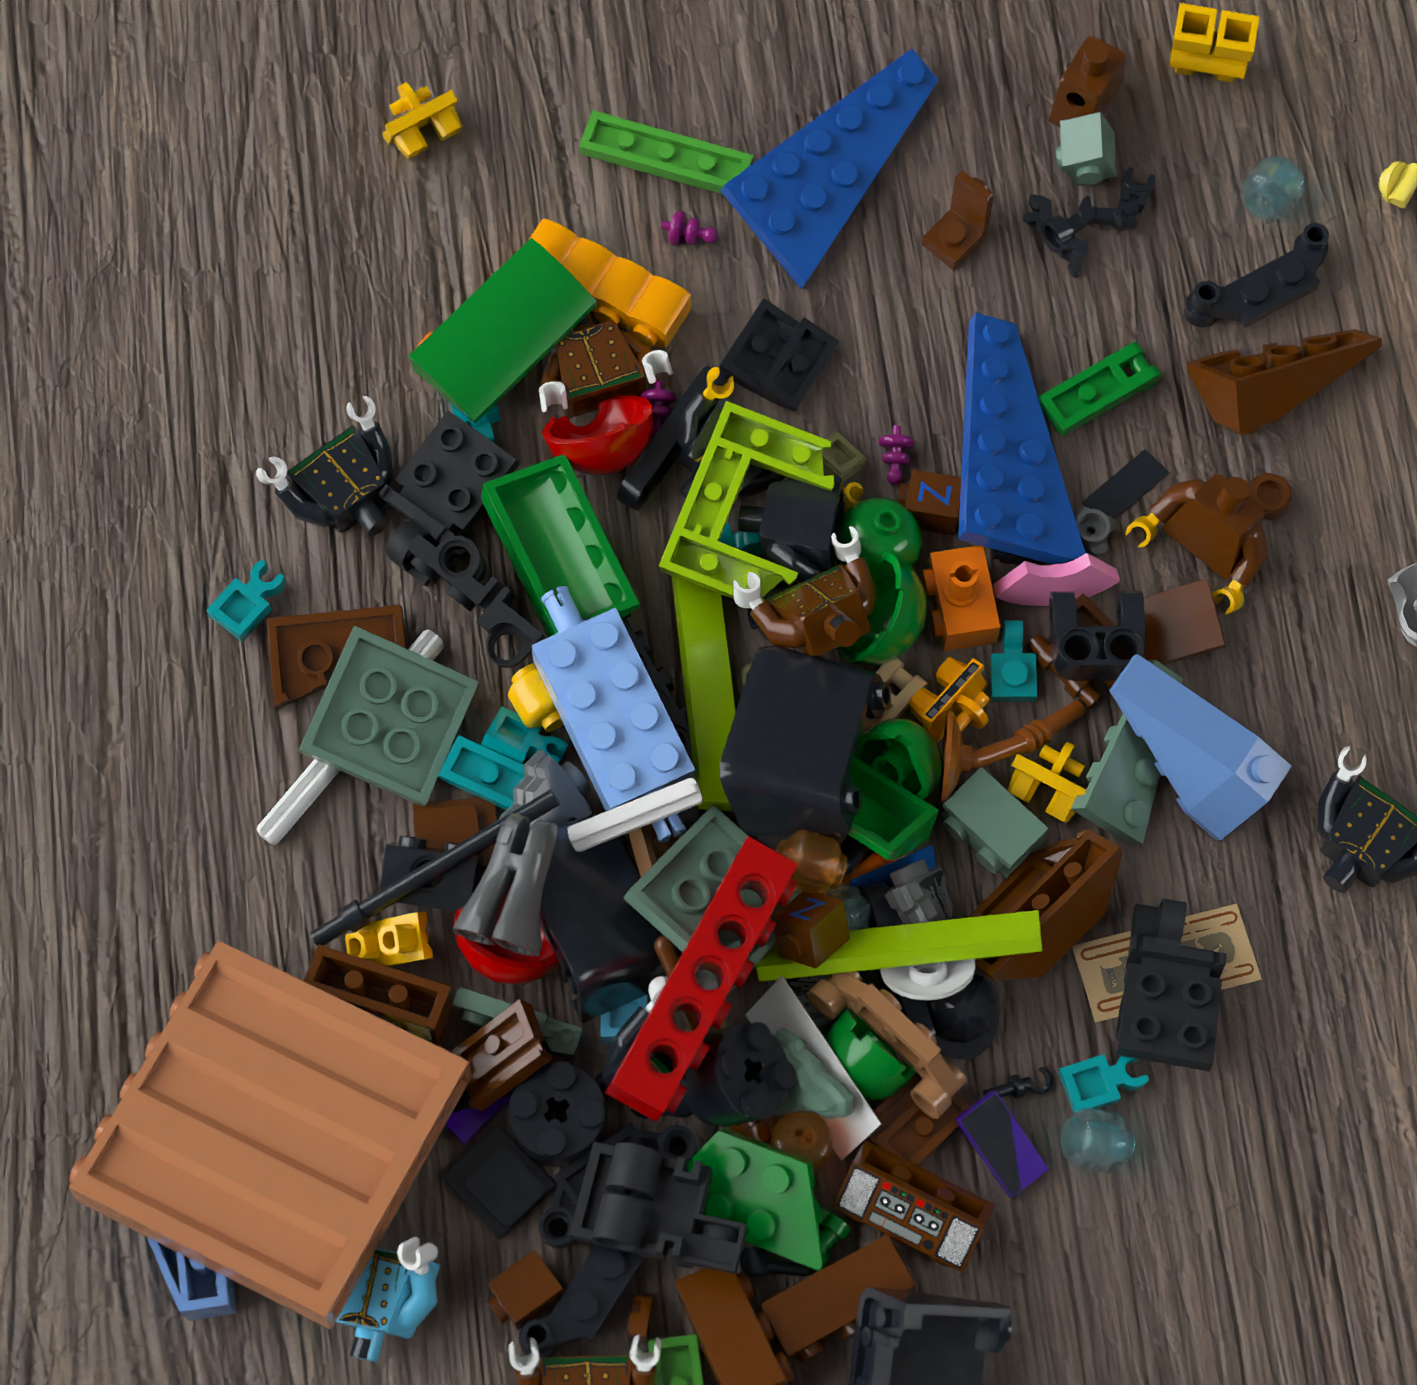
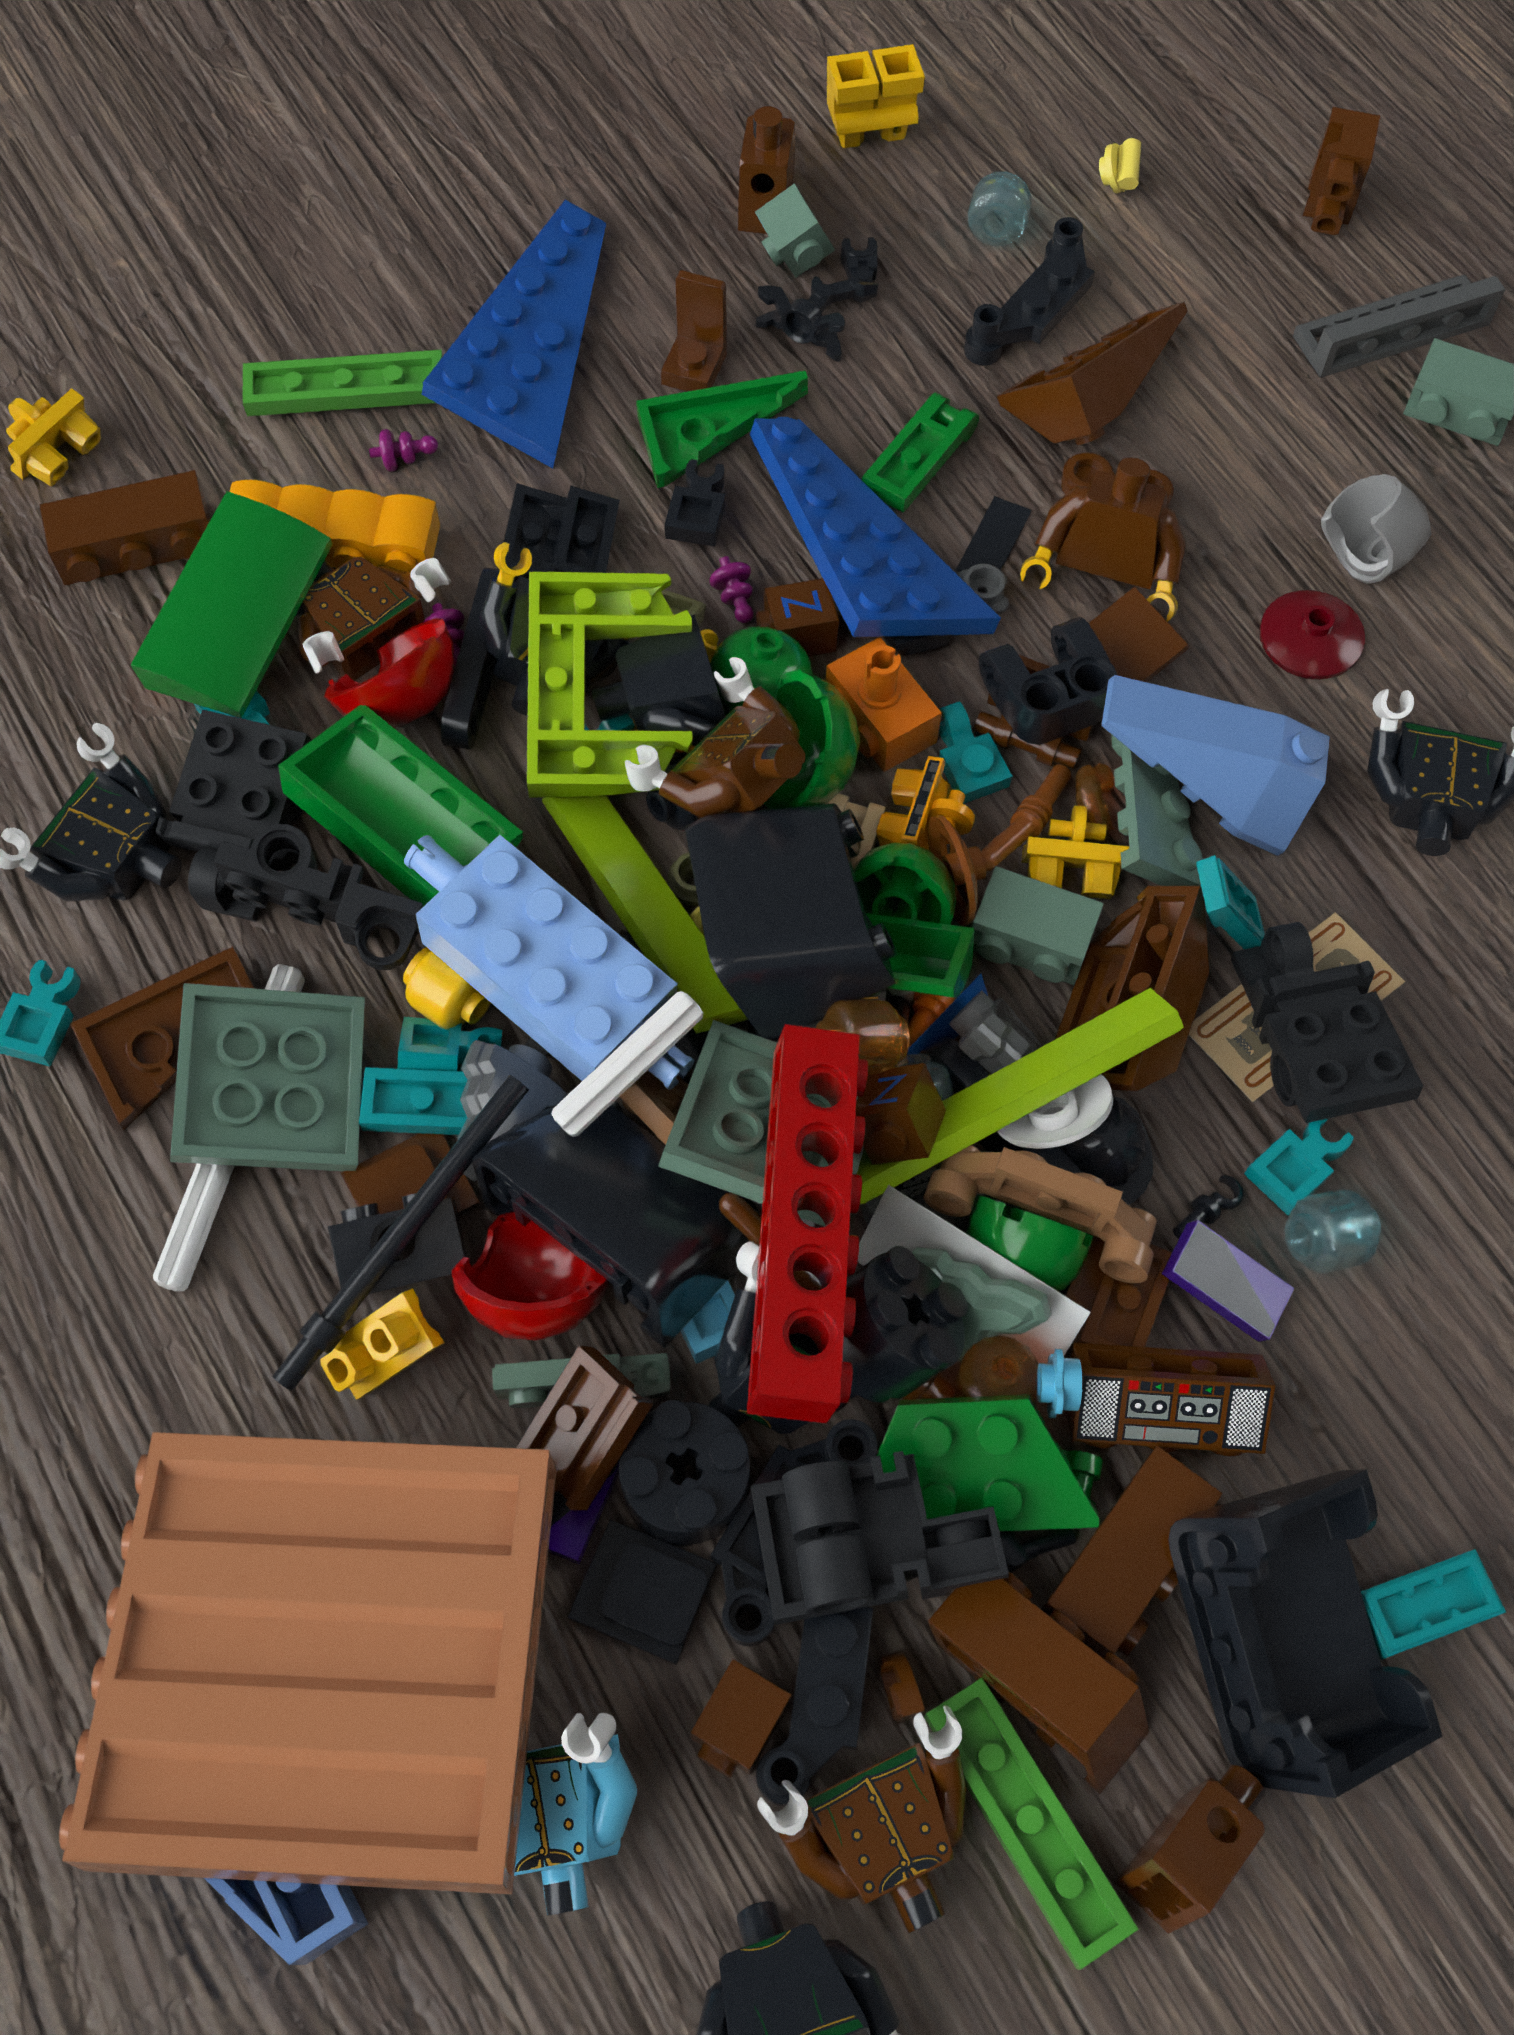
camera: 25 degrees left, 5 degrees down
(385, 992) = (405, 1408): reddish brown brick -> none
(451, 225) = (125, 527): none -> reddish brown brick
(518, 860) = (542, 1243): dark grey piece -> none
(836, 1163) = (1059, 1383): none -> medium azure plate
(897, 374) = (697, 508): none -> black plate
(931, 296) = (709, 419): none -> green wing
(1032, 583) = (954, 660): bright pink tile -> none
(1087, 736) = (1089, 790): none -> clear orange arm
(1145, 867) = (1230, 903): none -> teal plate
(1227, 459) = (1081, 469): none -> reddish brown tile
(1339, 687) = (1309, 649): none -> dark red dish

